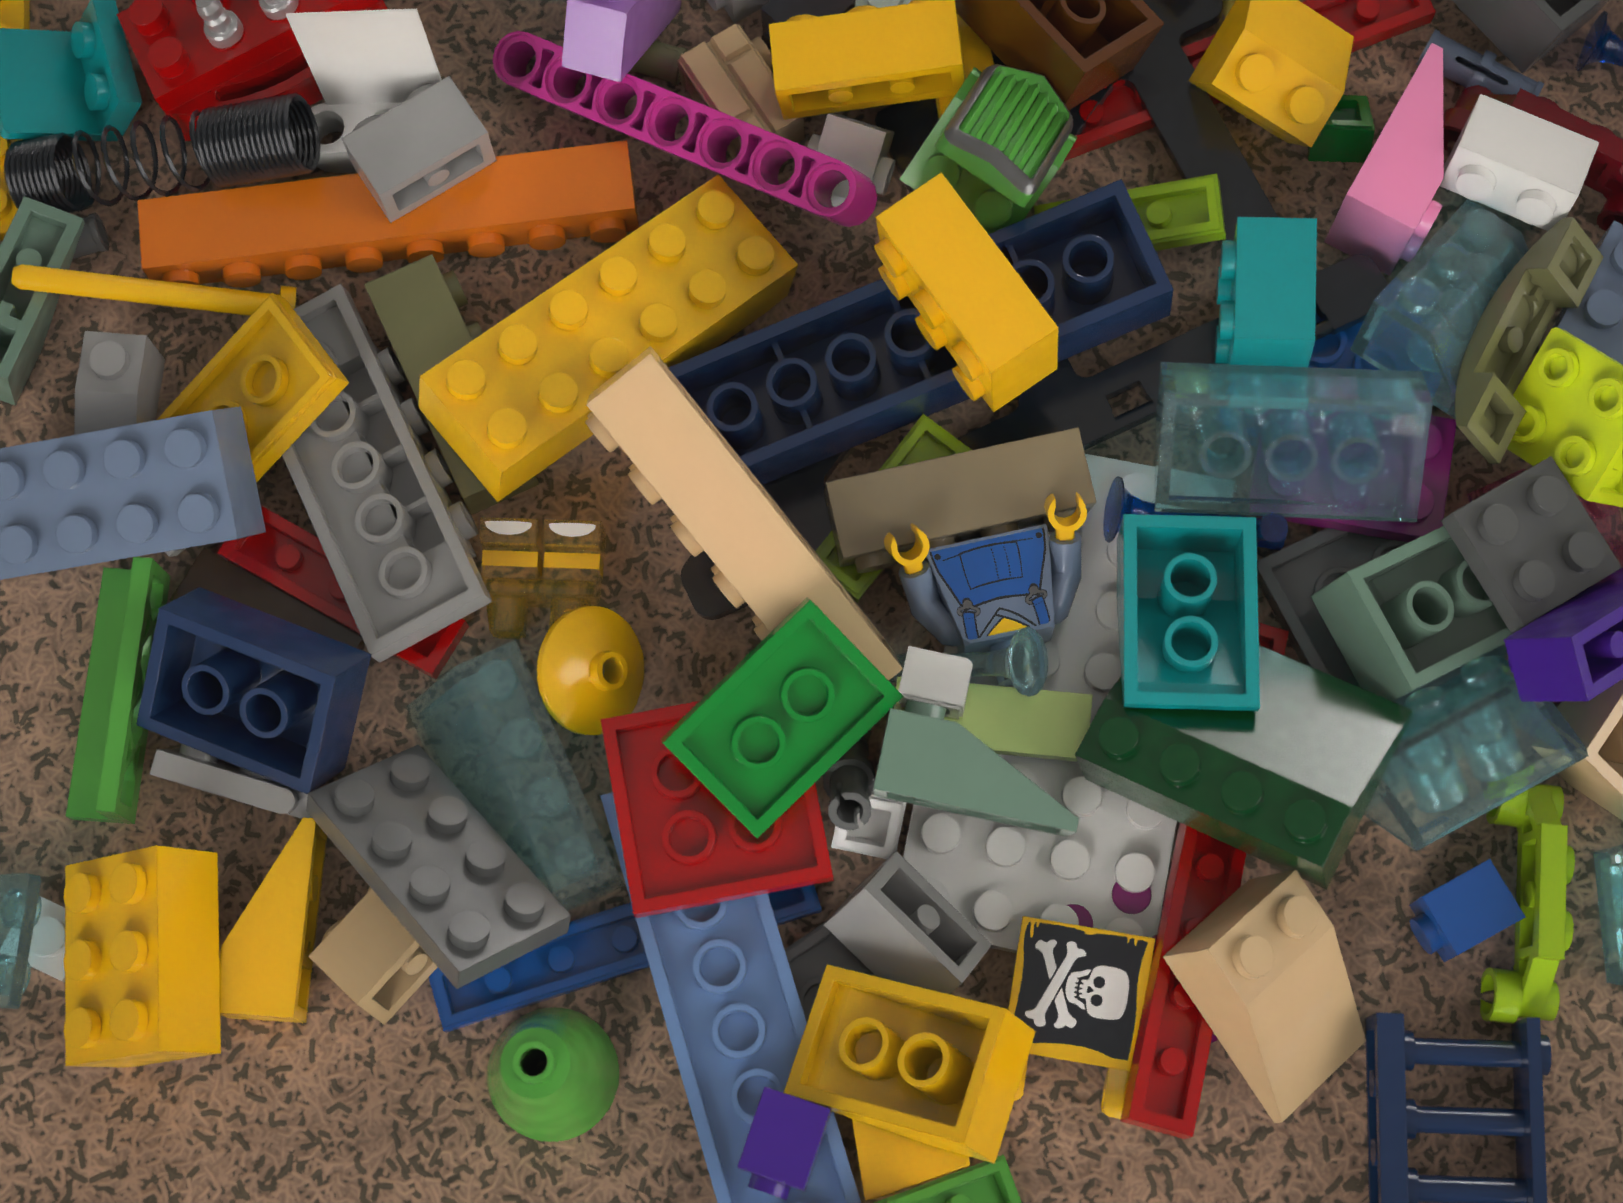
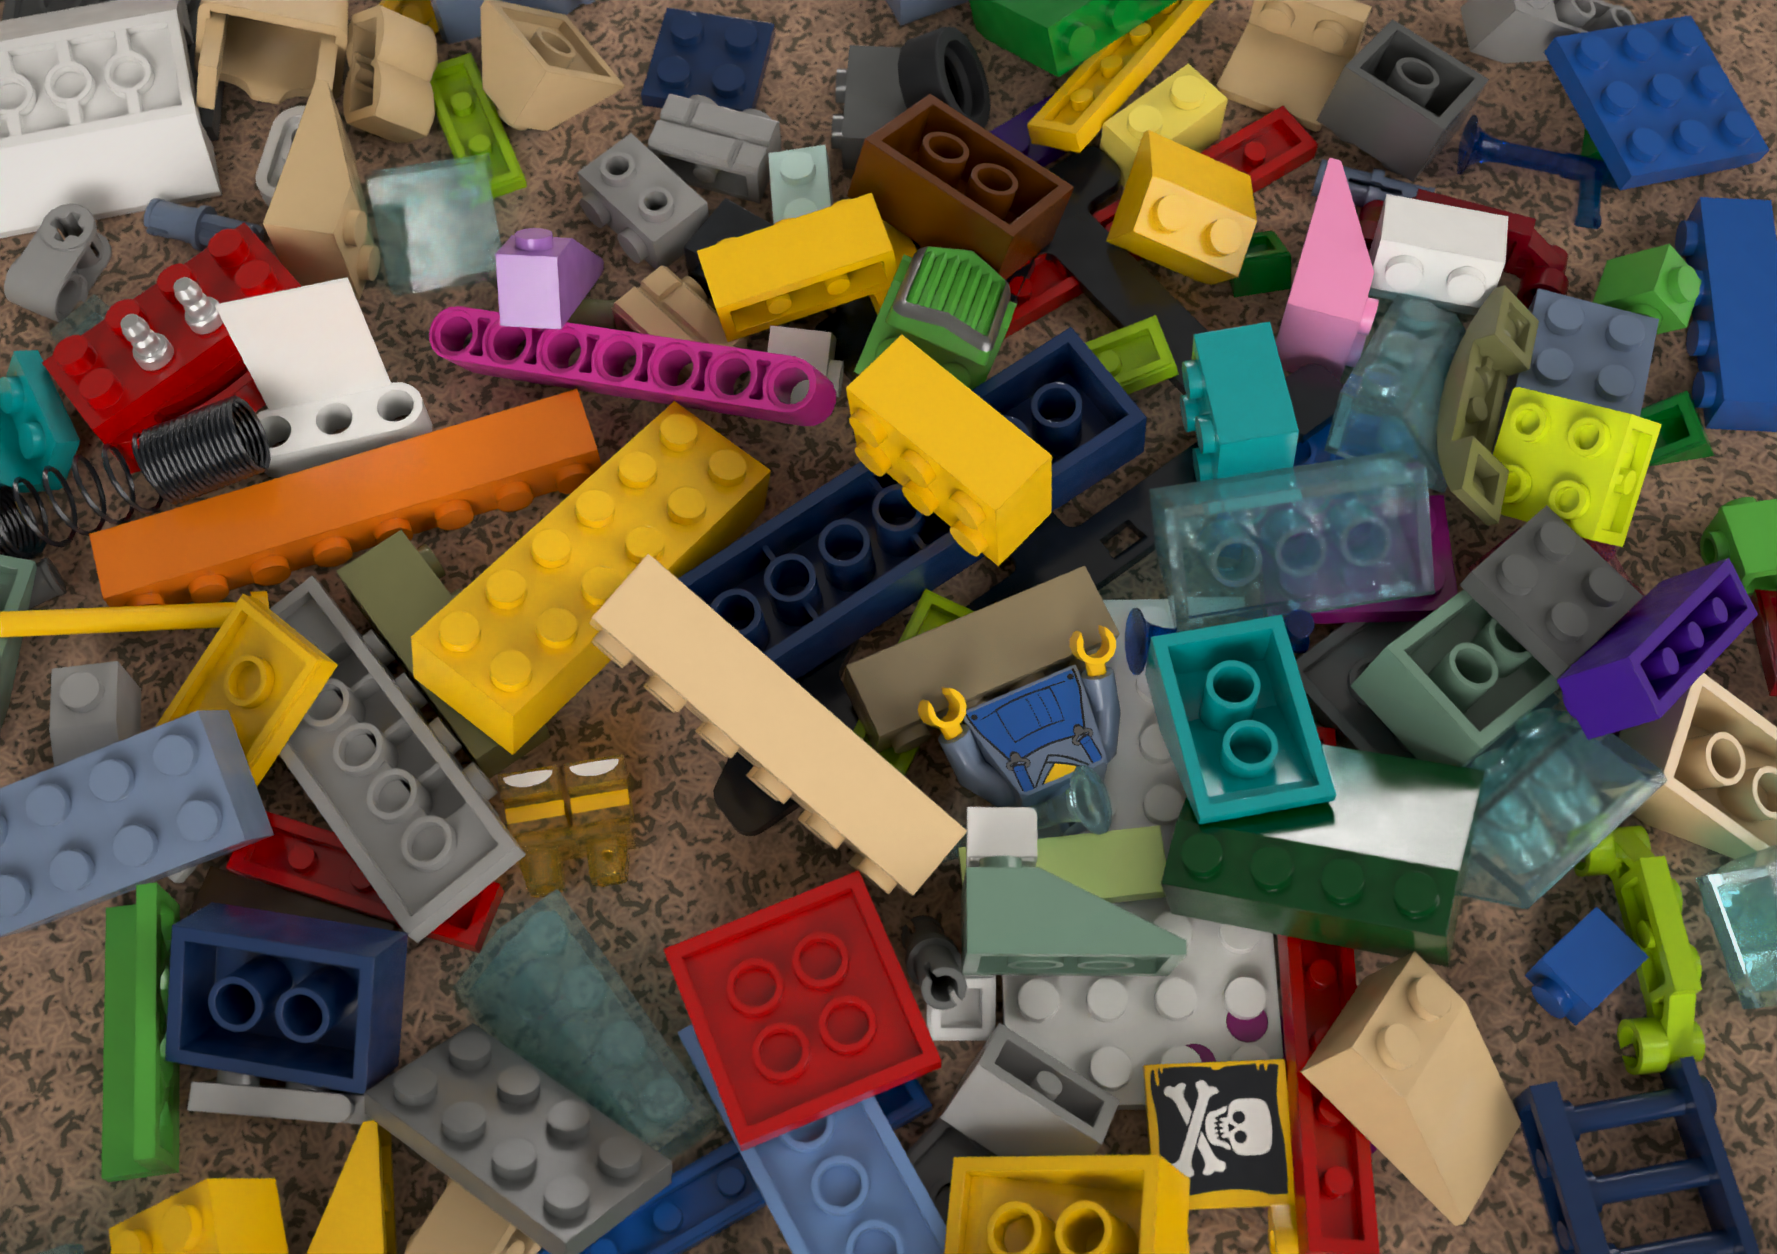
camera: 15 degrees left, 10 degrees down
(419, 148) = (371, 429): light grey brick -> none
(573, 663) = (639, 905): yellow dish -> none
(781, 717) = (855, 903): green plate -> none

